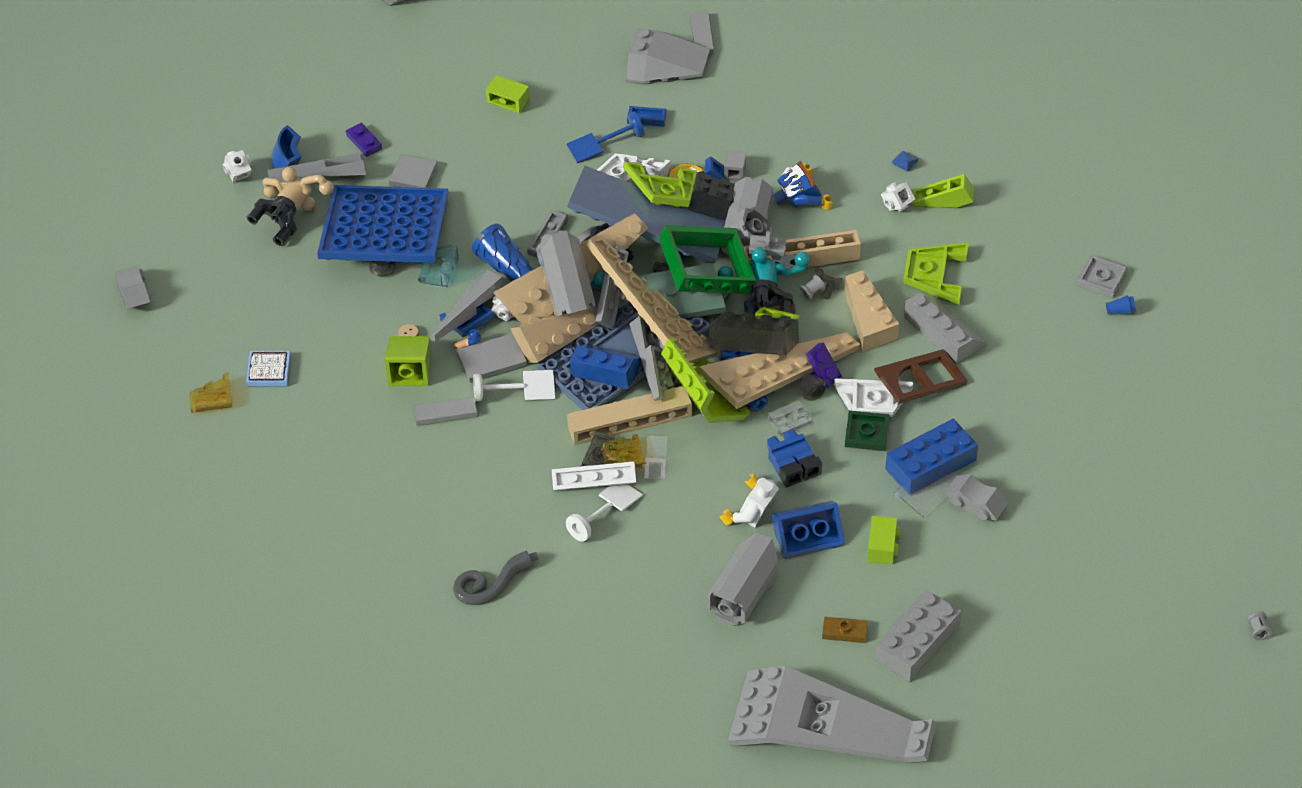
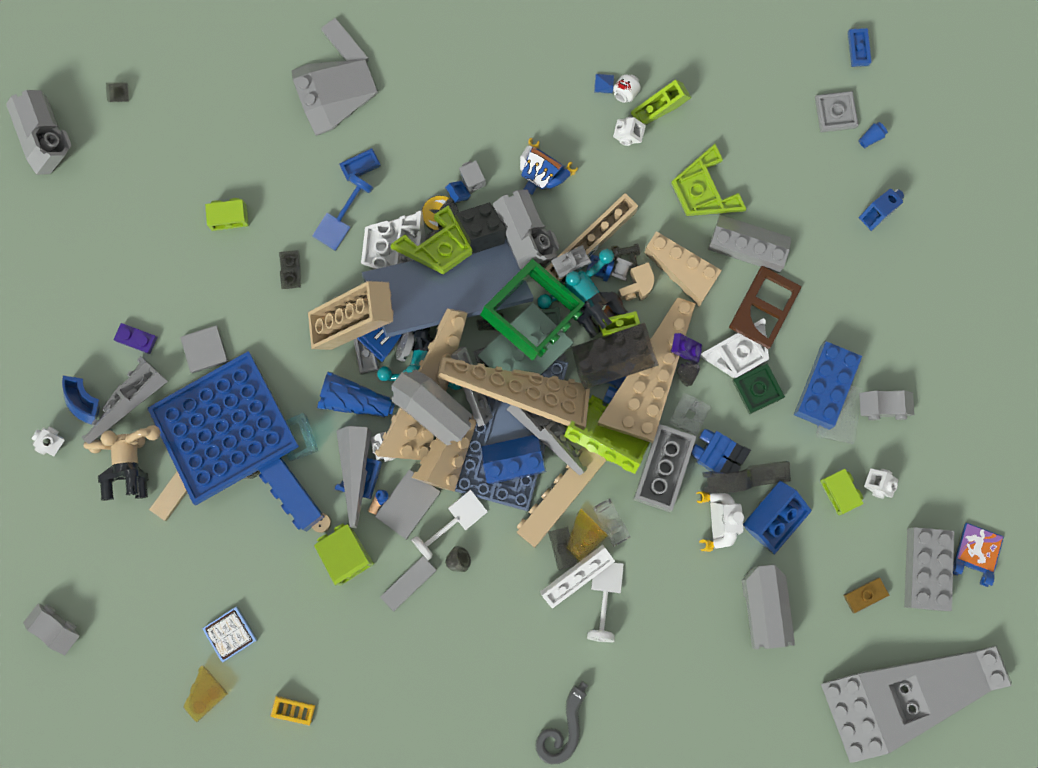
camera: 30 degrees left, 30 degrees up
(269, 430) = (274, 712): none -> yellow slope
(299, 254) = (169, 498): none -> tan tile
(401, 297) = (292, 494): none -> blue brick
(501, 412) = (458, 559): none -> clear smoke cone
(530, 155) = (290, 269): none -> clear smoke slope
(550, 186) = (350, 315): none -> tan brick
(565, 221) = (378, 343): none -> blue torso
(733, 438) = (664, 468): none -> light grey brick
(794, 282) = (605, 272): none -> blue tile
(804, 482) = (752, 476): none -> clear smoke piece
(821, 308) = (643, 283): none -> tan brick
(920, 169) = (626, 88): none -> white head
(923, 549) = (881, 483): none -> white brick
(977, 652) = (979, 551): none -> flag
(1085, 356) = (885, 205): none -> blue torso
(1159, 240) = (859, 47): none -> blue plate

